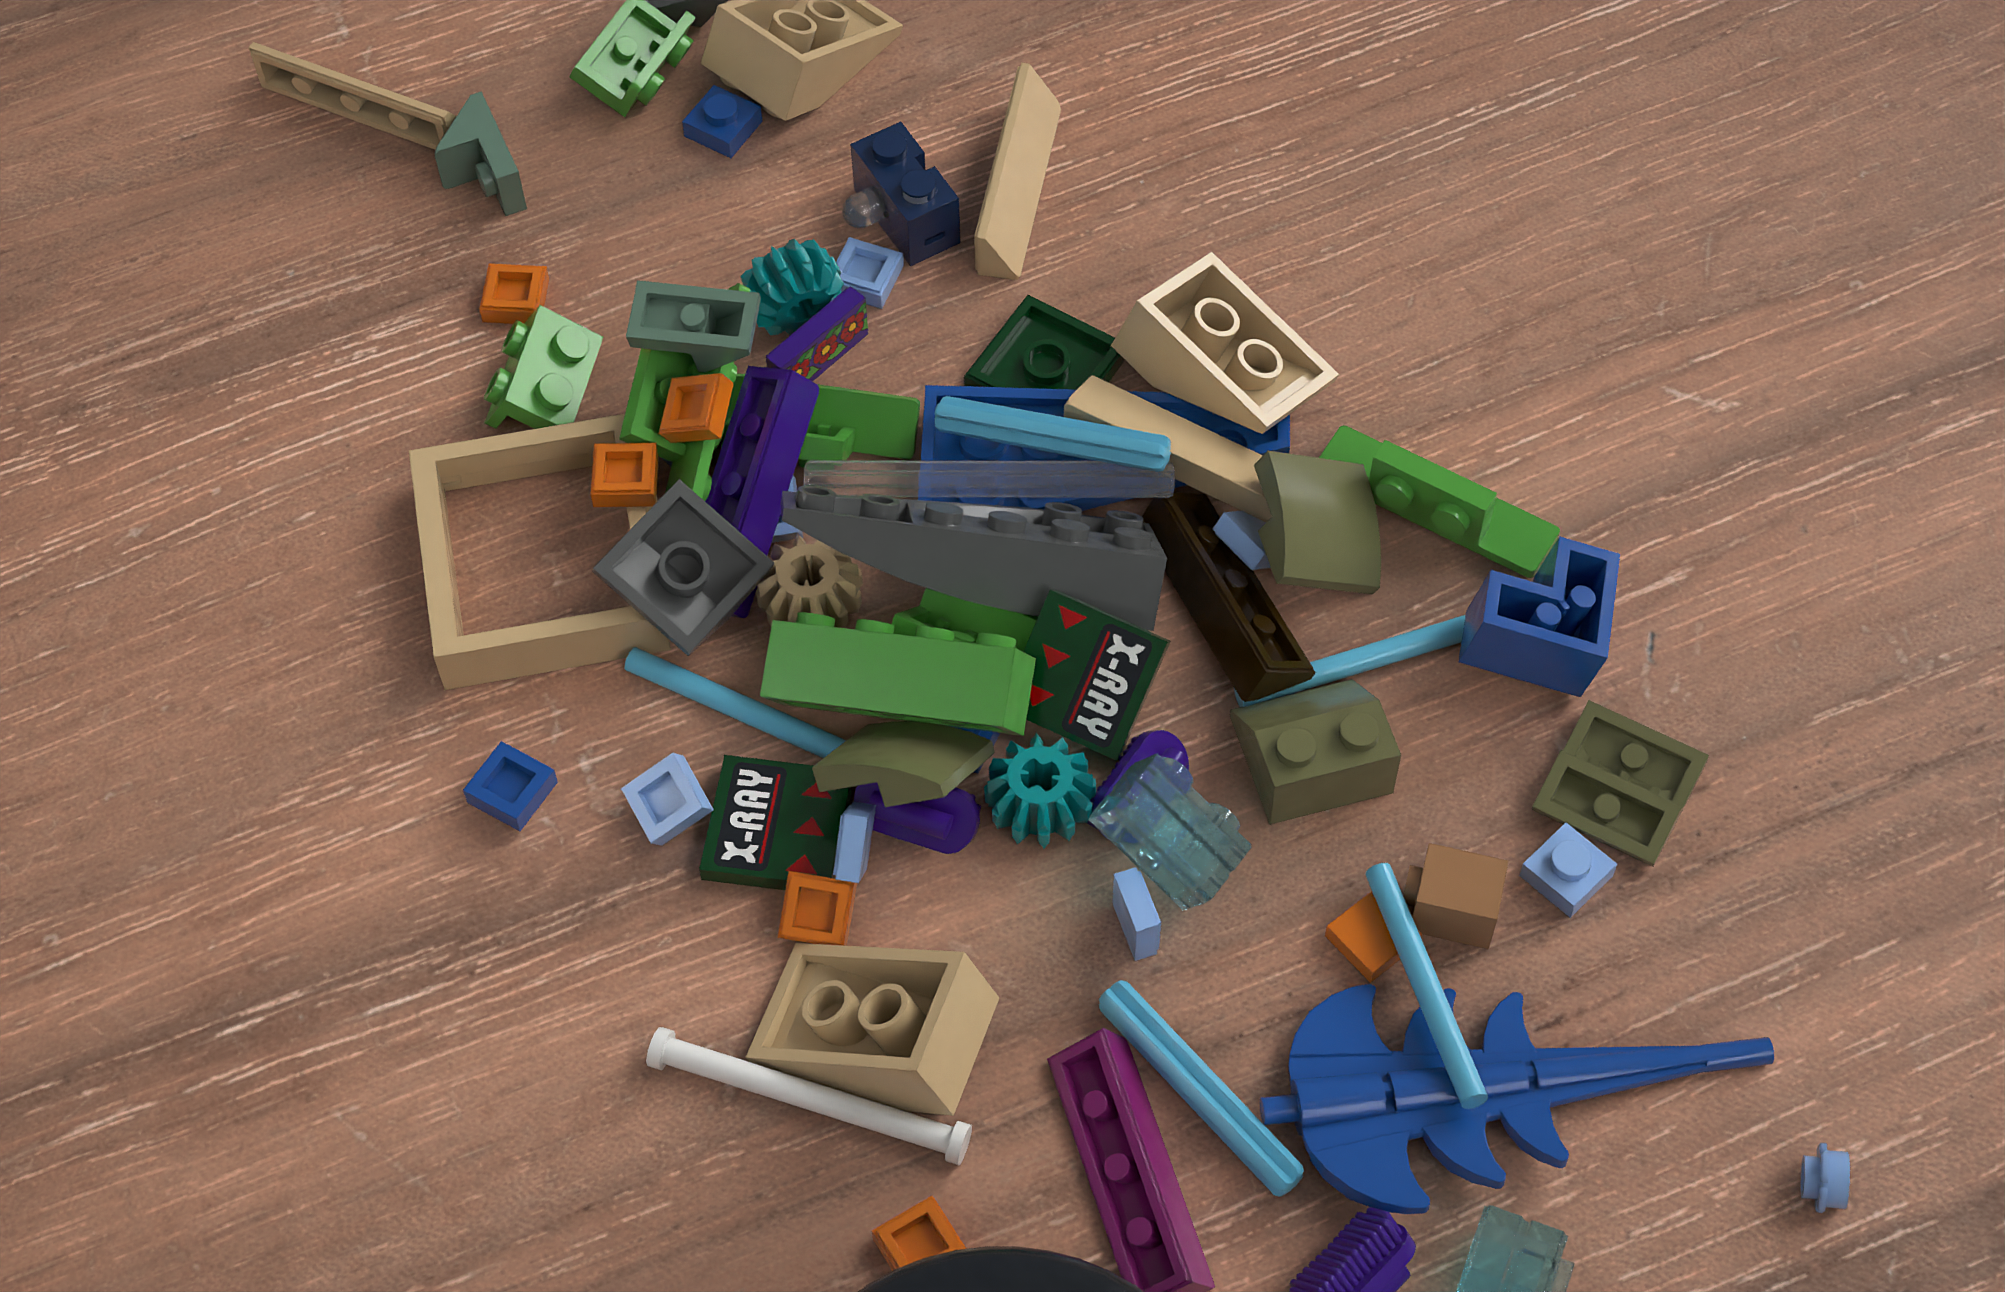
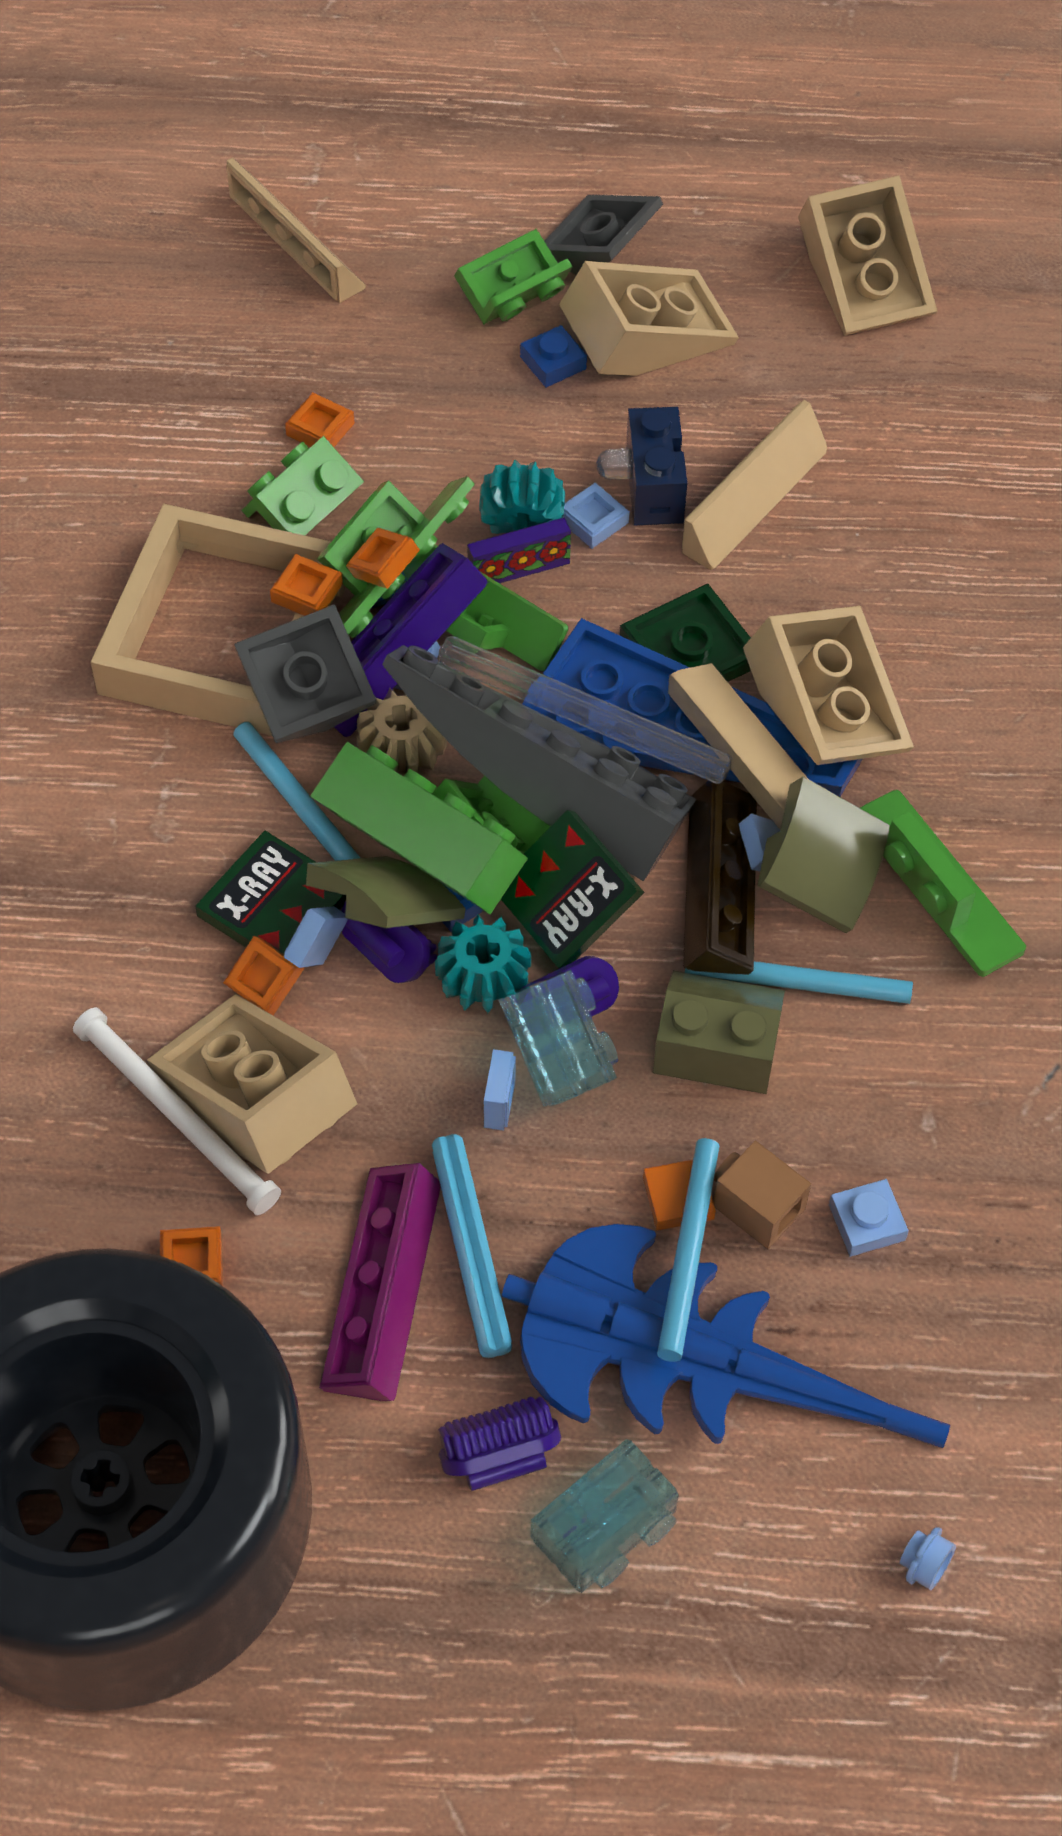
camera: 25 degrees right, 0 degrees up
(477, 150) = (351, 304): sand green slope -> none
(510, 786) = (96, 783): blue plate -> none
(667, 799) = (202, 843): light blue plate -> none
(696, 320) = (410, 488): sand green slope -> none
(1053, 433) = (650, 694): medium azure axle -> none
(1548, 628) = (958, 1021): blue brick -> none
(1621, 783) = (953, 1170): olive slope -> none

